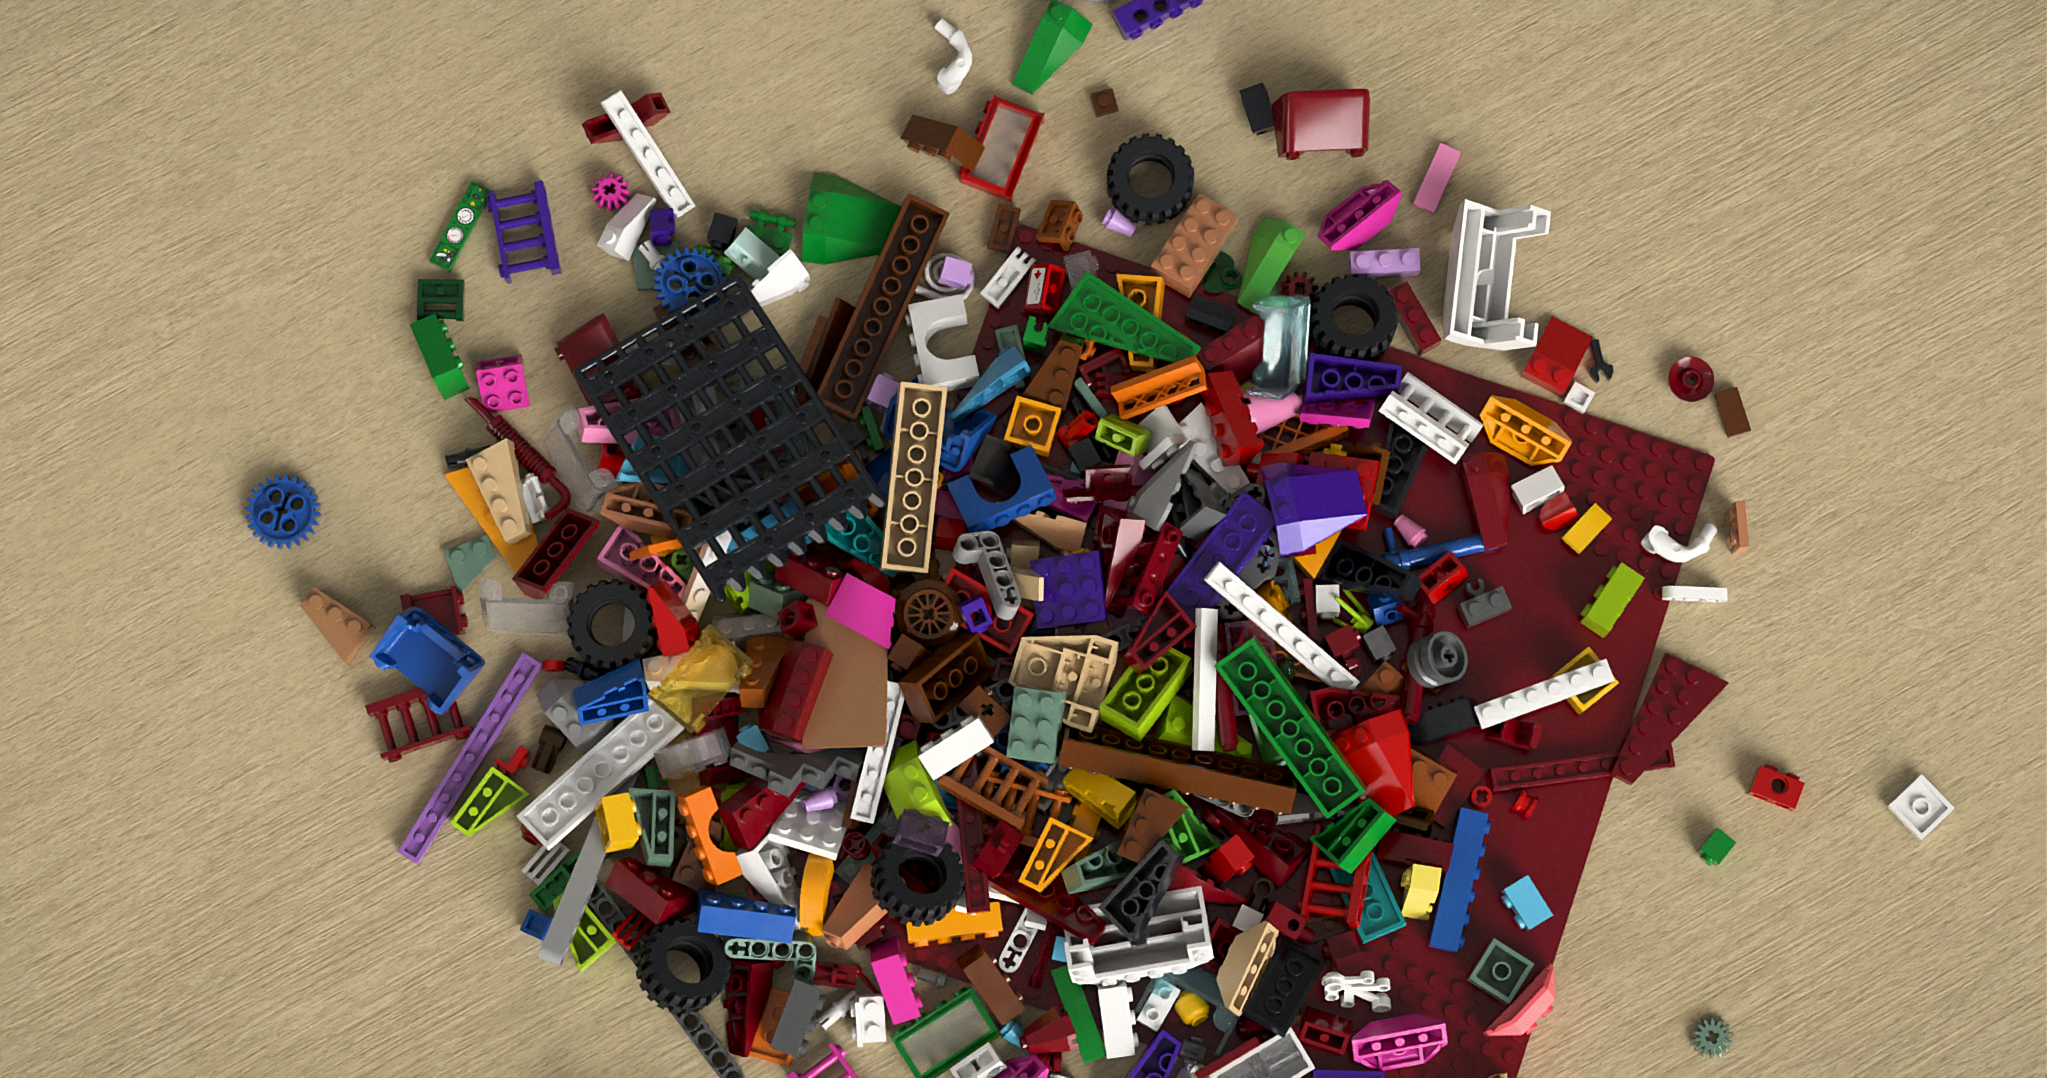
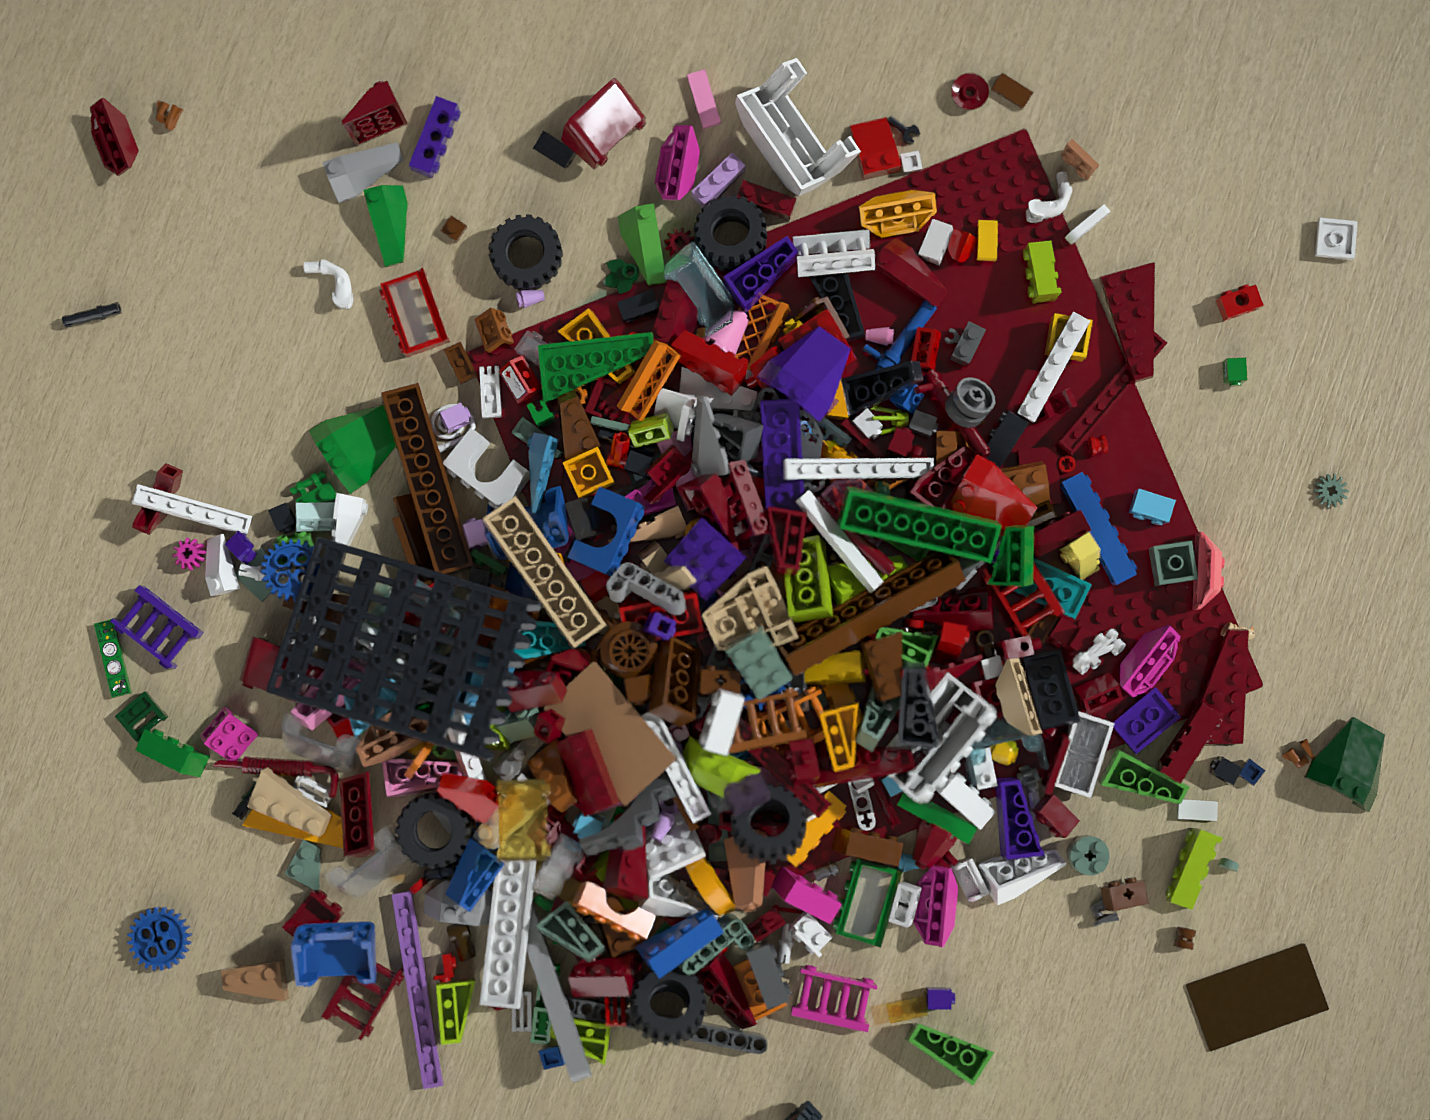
camera: 40 degrees left, 5 degrees up
(617, 822) = (548, 953): yellow brick -> none
(863, 610) = (587, 684): dark pink slope -> none
(942, 141) = (373, 341): reddish brown wedge -> none
(1194, 245) = (590, 270): nougat brick -> none
(1346, 414) = (773, 302): dark pink wing -> none

